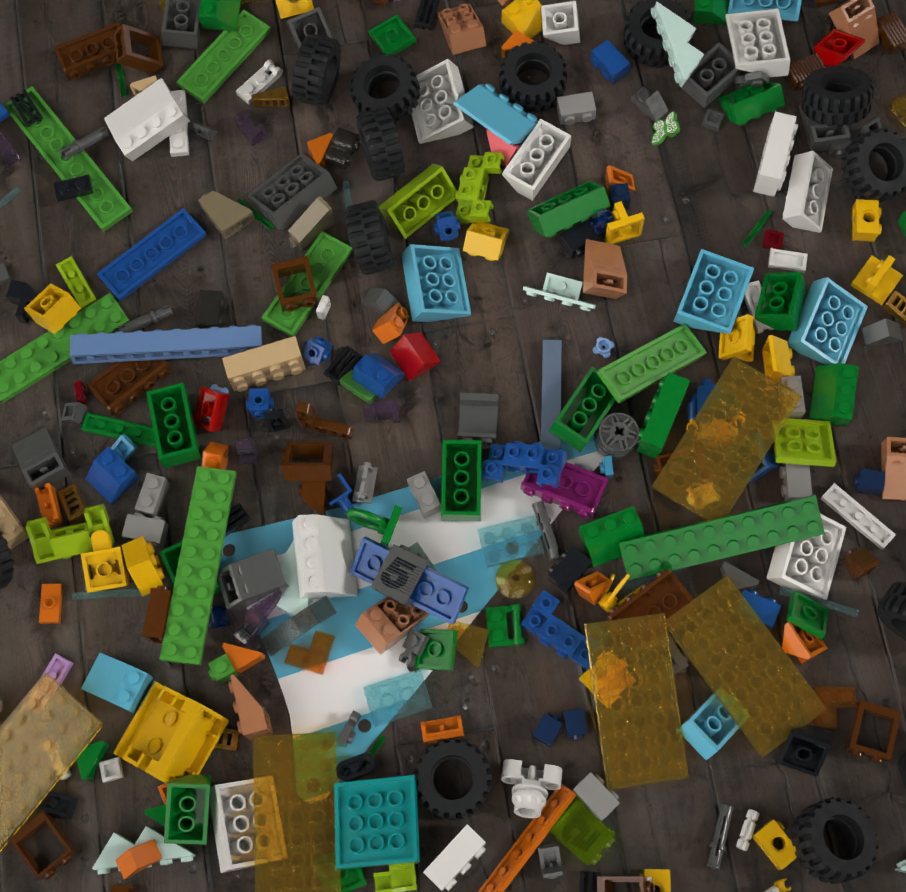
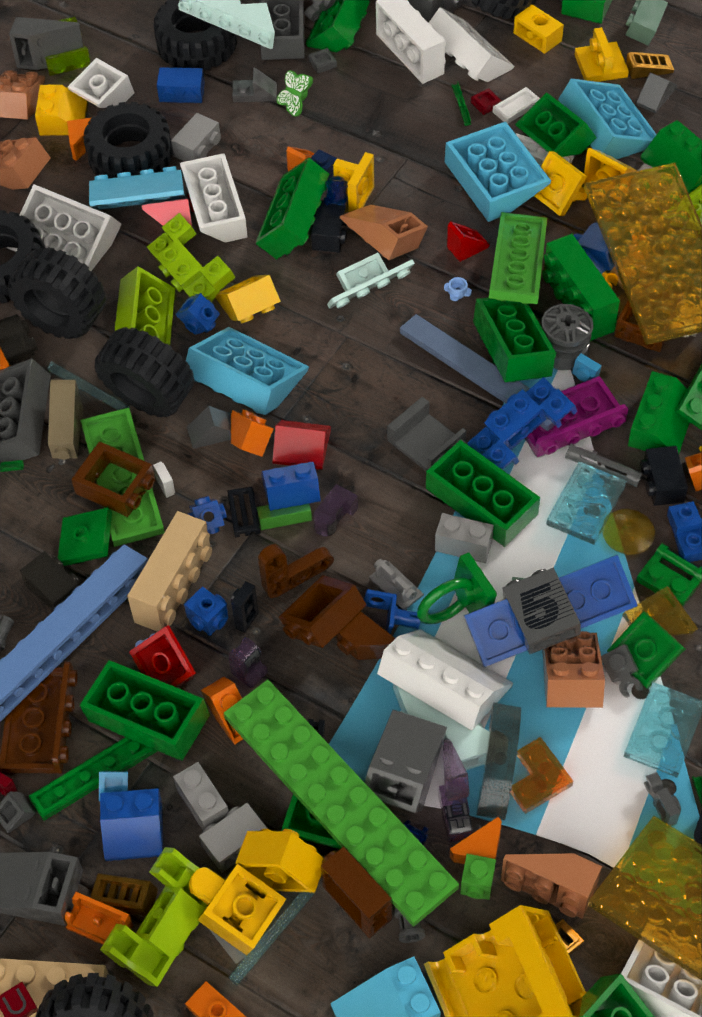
camera: 50 degrees left, 15 degrees down
(252, 301) = (85, 536): none -> green plate
(644, 322) = (464, 241): none -> red slope

